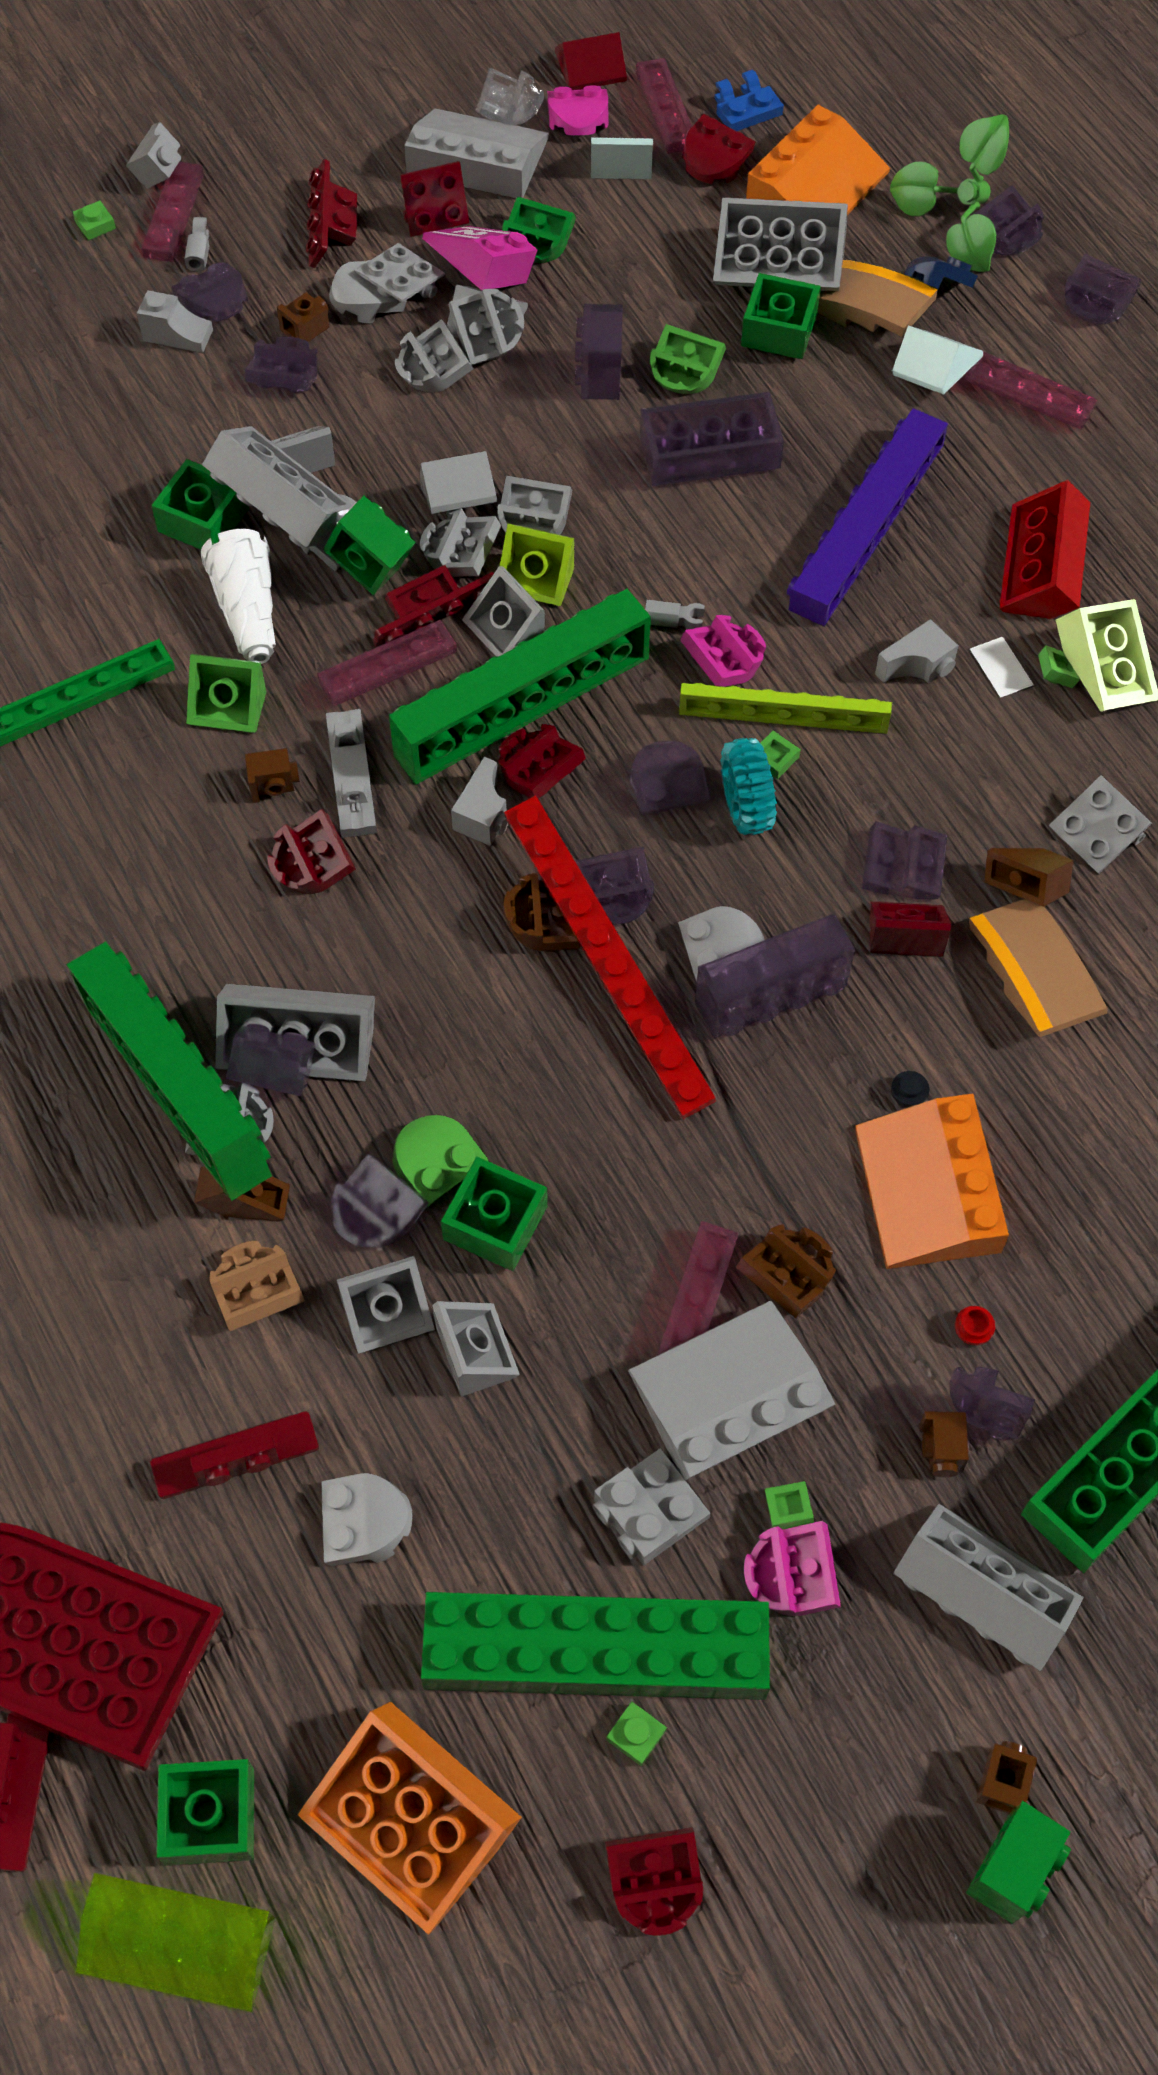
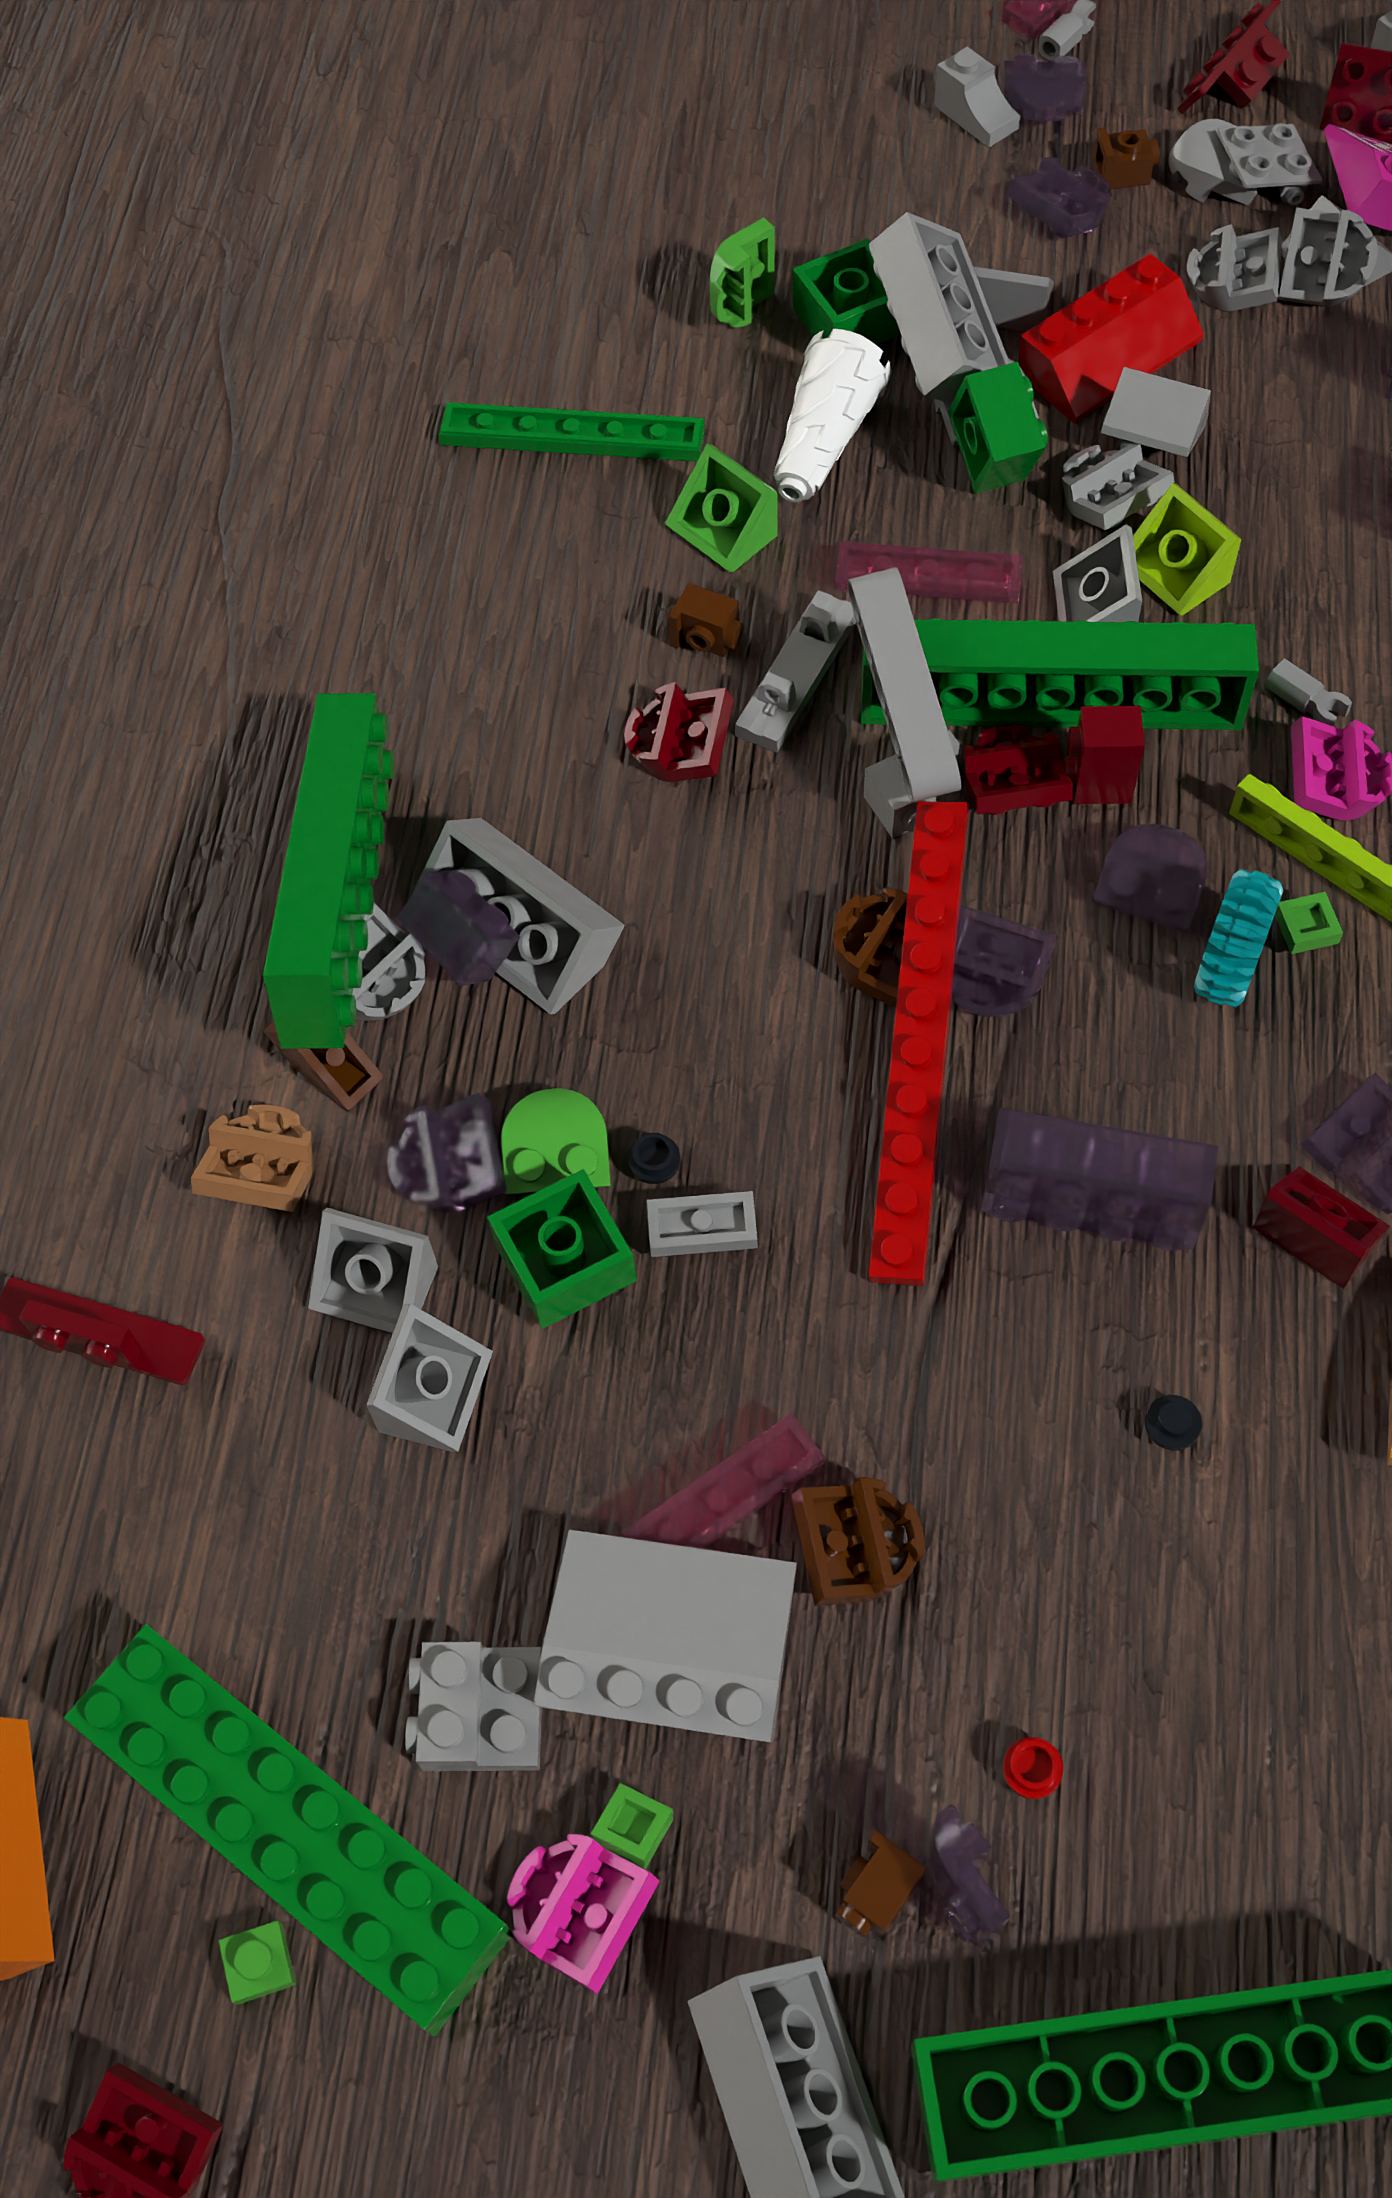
camera: 40 degrees right, 0 degrees up
(115, 525) = (743, 273): none -> bright green slope
(363, 1518) = (165, 1495): light grey slope -> none
(388, 446) = (1128, 321): none -> red slope
(425, 599) = (1021, 526): dark red bracket -> none
(448, 742) = (904, 685): none -> light grey beam
(501, 1127) = (654, 1158): none -> black plate
(534, 504) = (1233, 486): light grey slope -> none
(561, 1147) = (702, 1224): none -> light grey plate
(591, 717) = (1105, 754): none -> dark red brick
(717, 934) = (1075, 1090): light grey slope -> none
(932, 1183) = (1110, 1556): orange slope -> none

